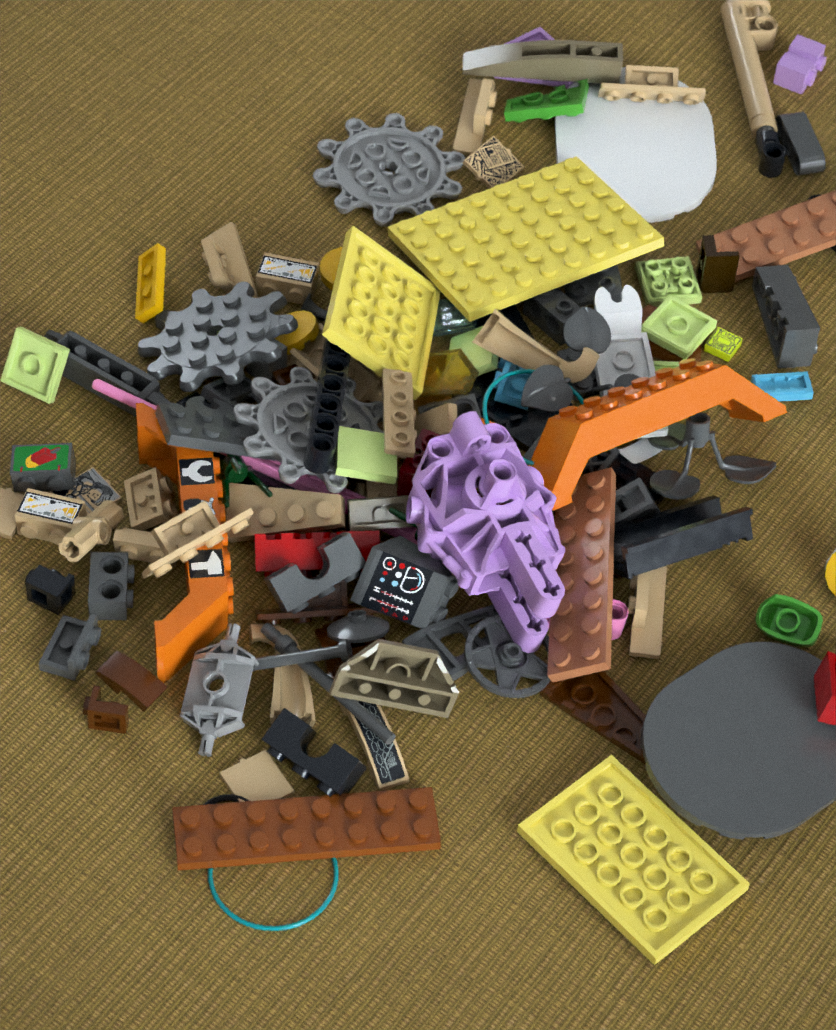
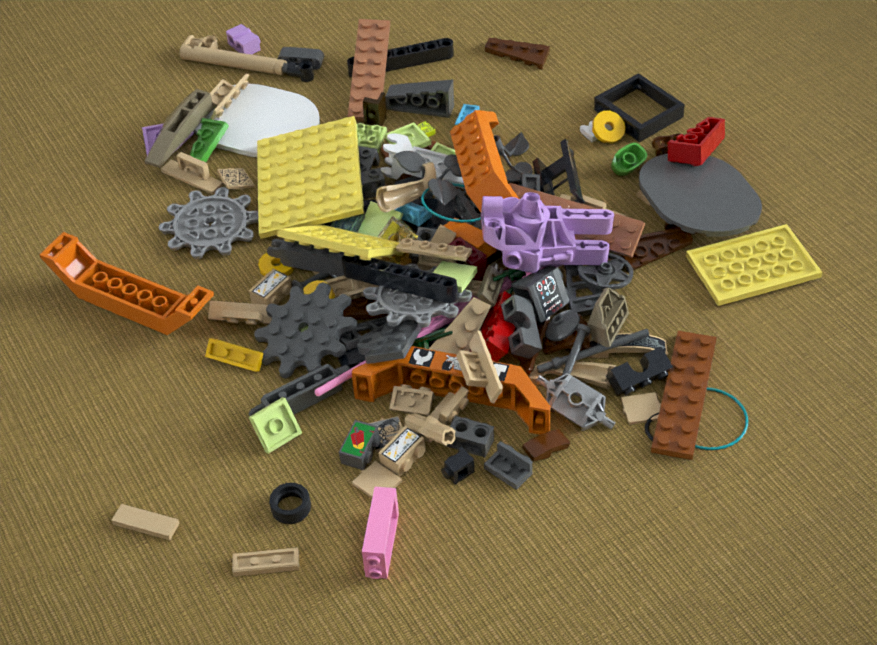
camera: 60 degrees left, 5 degrees down
(105, 715) = (568, 464): reddish brown bracket -> none
(205, 113) = (121, 290): none -> orange slope

